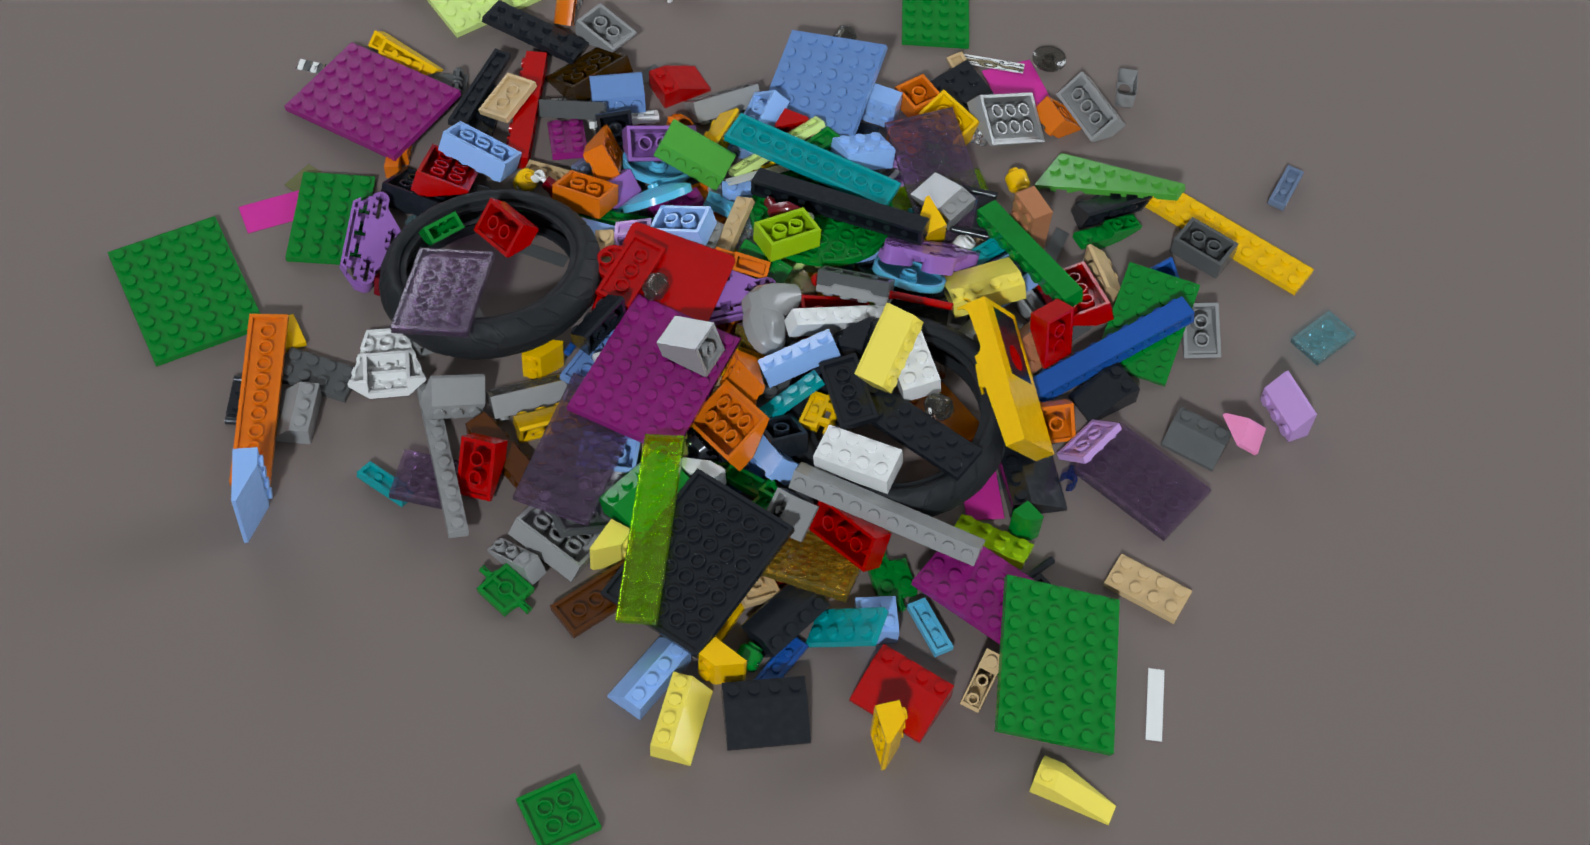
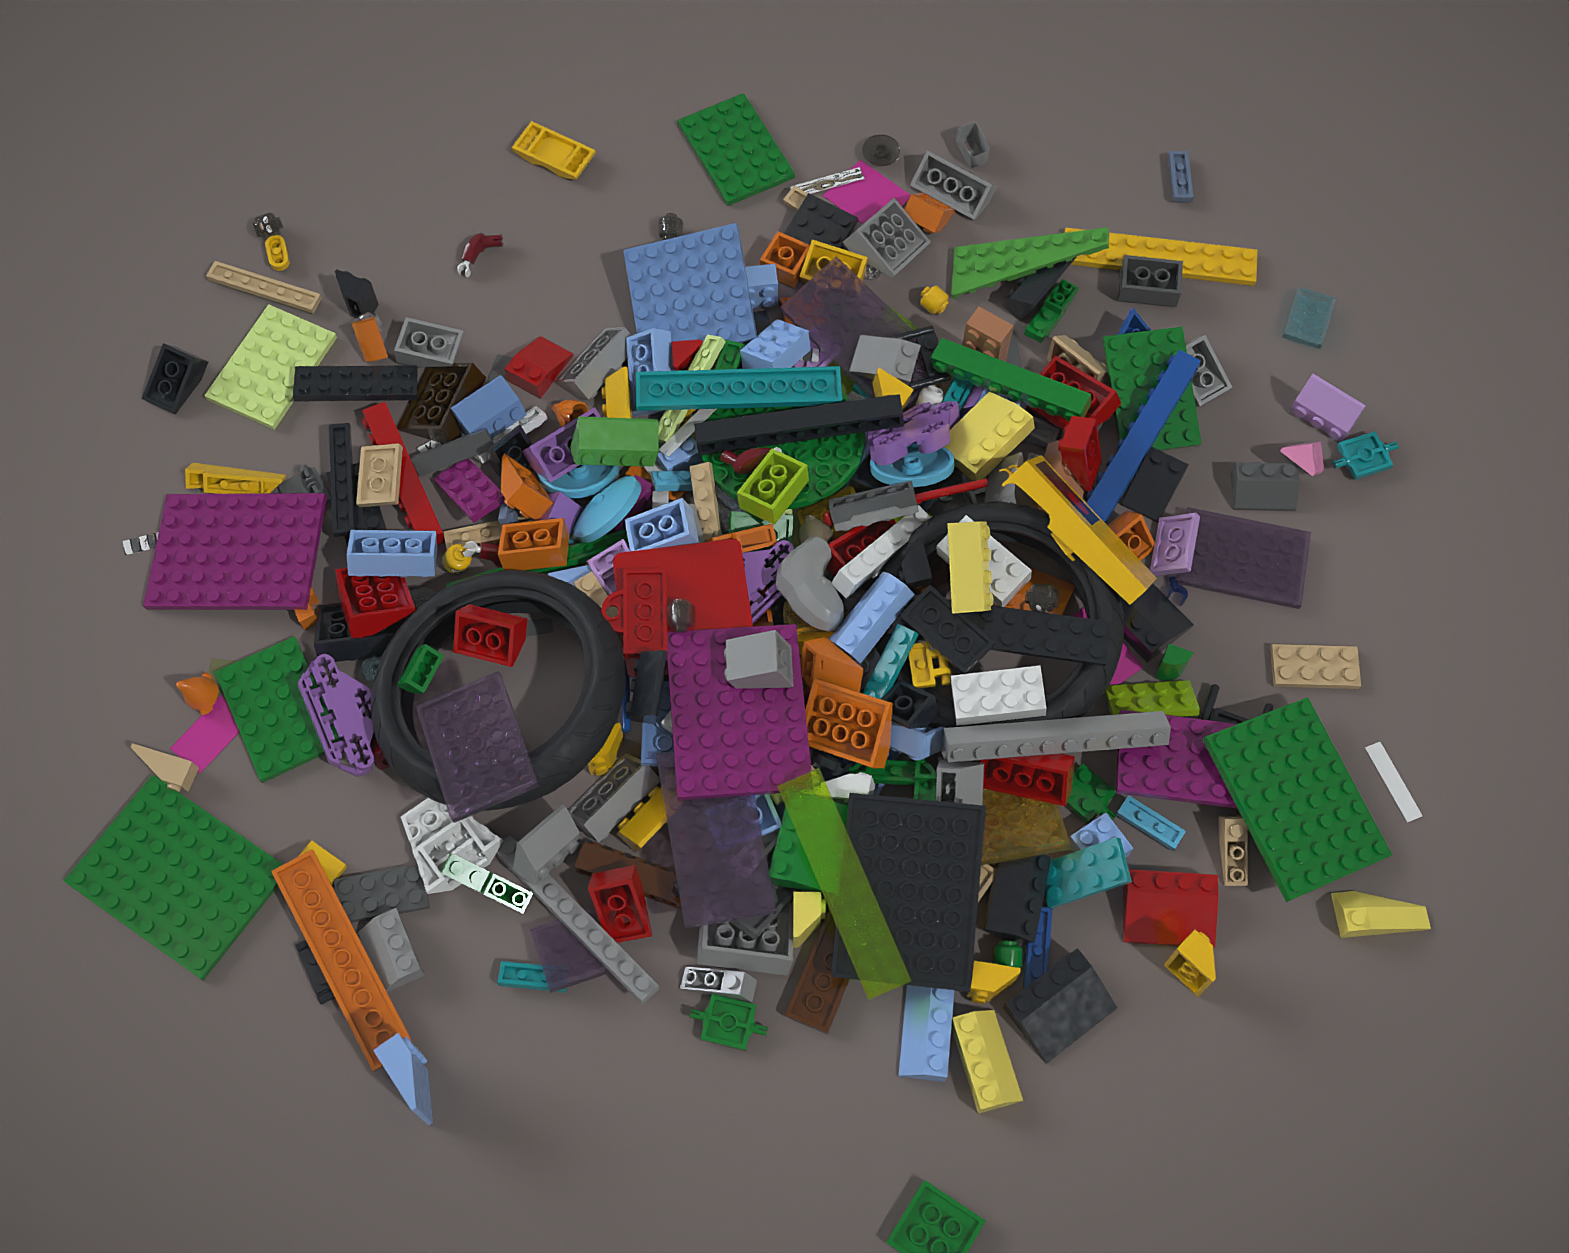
camera: 25 degrees left, 10 degrees up
(230, 220) = (172, 770): none -> tan slope
(282, 177) = (199, 692): none -> orange hat
(395, 402) = (486, 882): none -> slope
(1299, 458) = (1365, 455): none -> teal plate

